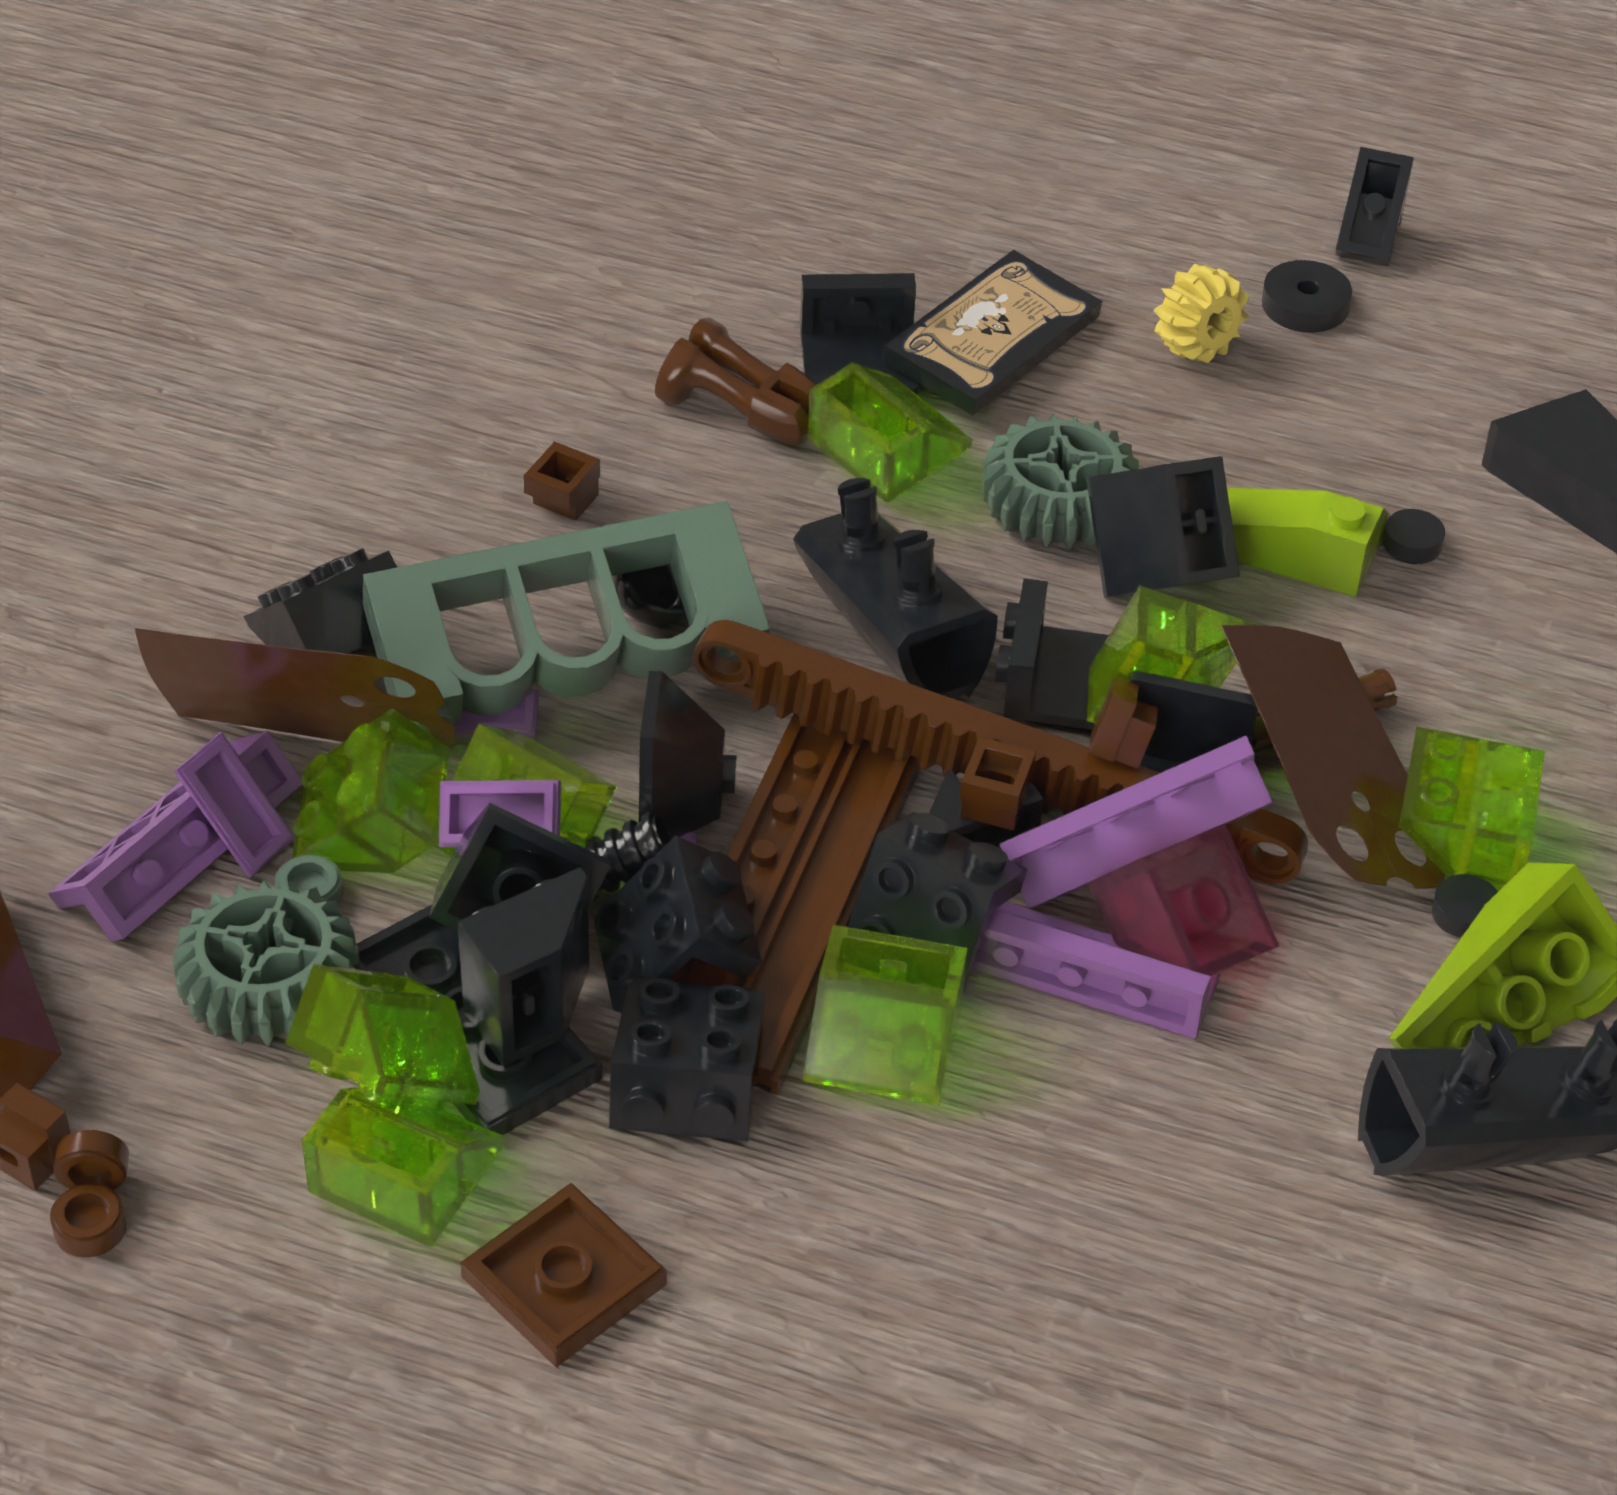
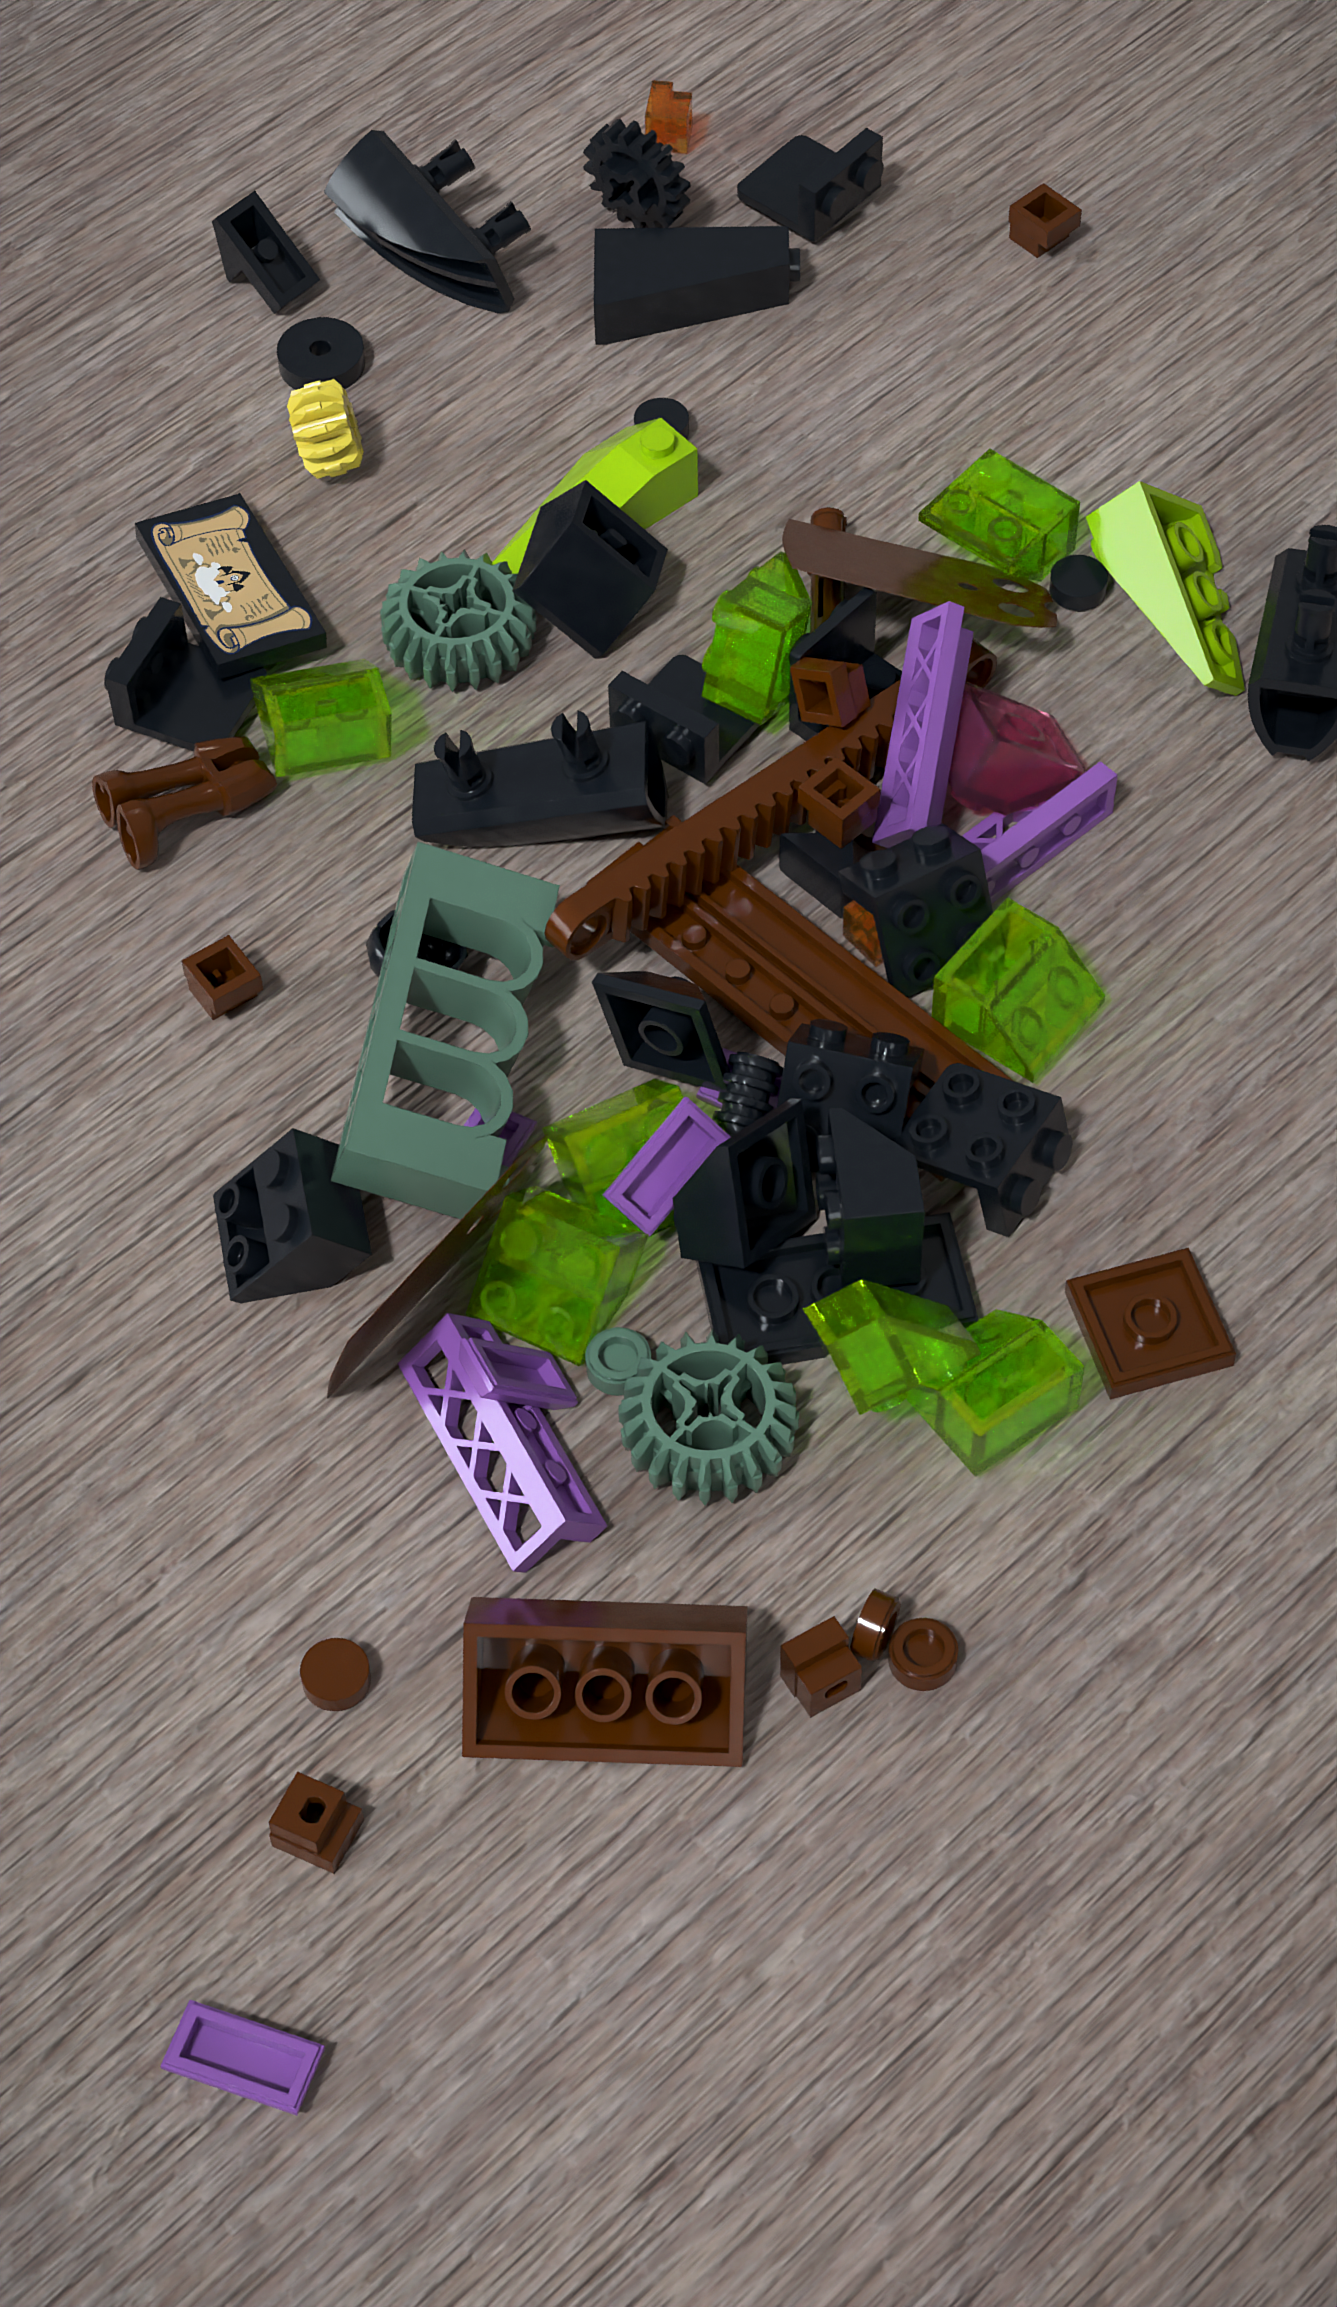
camera: 60 degrees left, 10 degrees up
(1500, 279) = (411, 226): none -> black piece

